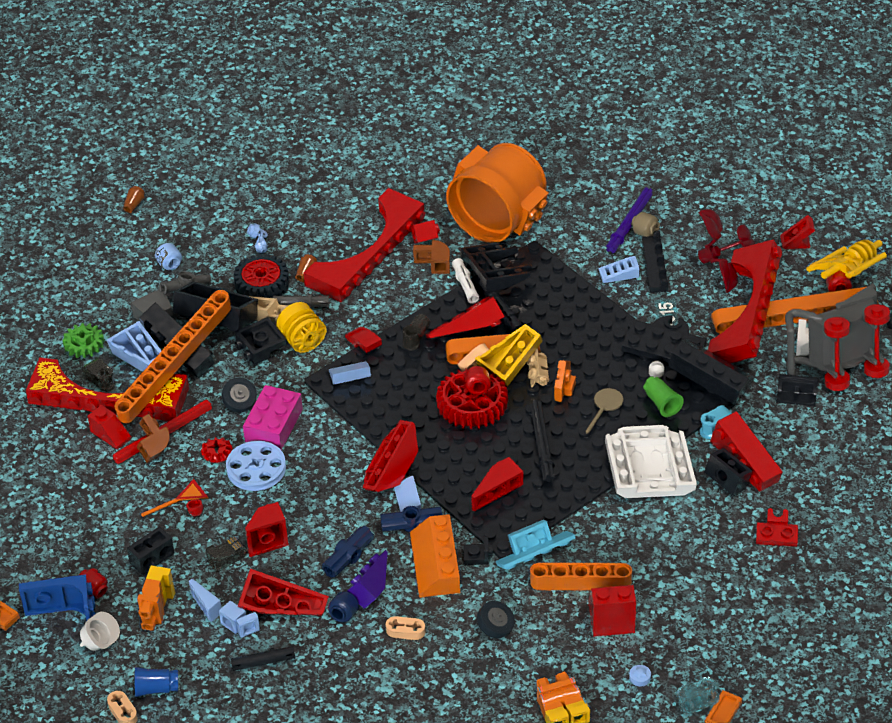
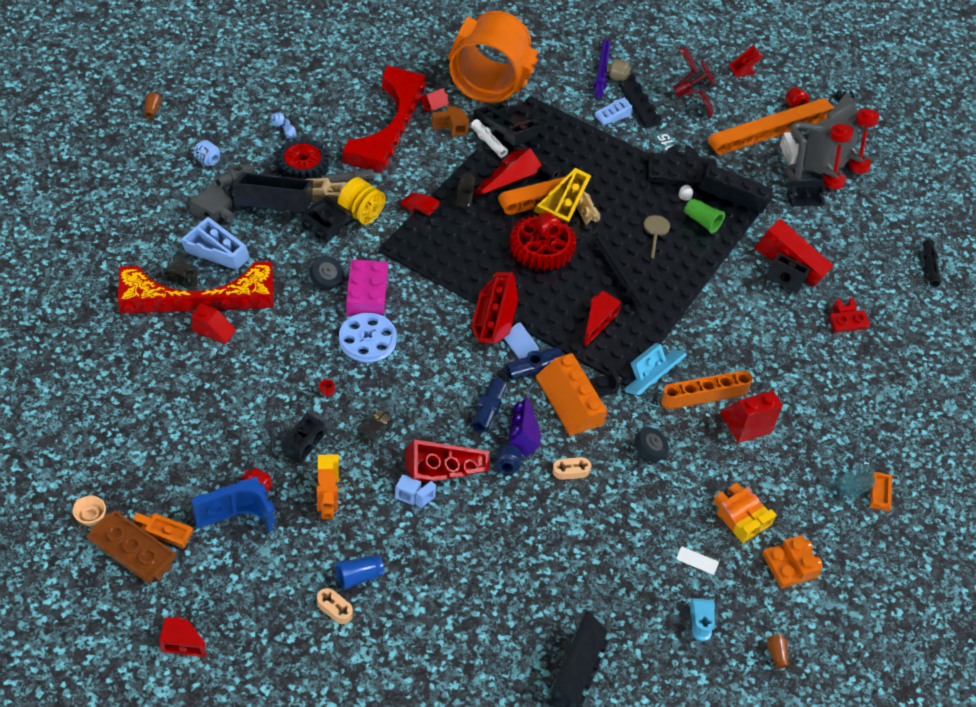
camera: 25 degrees left, 5 degrees up
(83, 340) = (154, 243): bright green gear -> none
(99, 631) = (283, 531): white piece -> none
(156, 439) = (266, 328): dark orange brick -> none
(164, 328) = (251, 230): black wedge -> none
(167, 360) = (256, 252): orange beam -> none
(172, 425) = (253, 330): red axle -> none
(191, 492) = (314, 374): orange piece -> none
(207, 601) = (373, 477): light blue slope -> none
(209, 453) = (319, 332): red gear -> none
(263, 658) = (461, 521): black pin -> none
(266, 530) = (411, 397): red slope -> none
(304, 264) = (338, 144): dark orange cone -> none
(350, 372) = (421, 235): light blue slope -> none
(469, 361) = (530, 206): light nougat beam -> none
(565, 381) = (616, 214): orange plate -> none
(640, 675) = (796, 472): light blue tile -> none
(650, 462) = (720, 275): white wedge -> none
(710, 419) = (755, 231): medium azure piece -> none
(744, 335) = (748, 154): red arch -> none
(854, 261) = (801, 78): yellow bar -> none

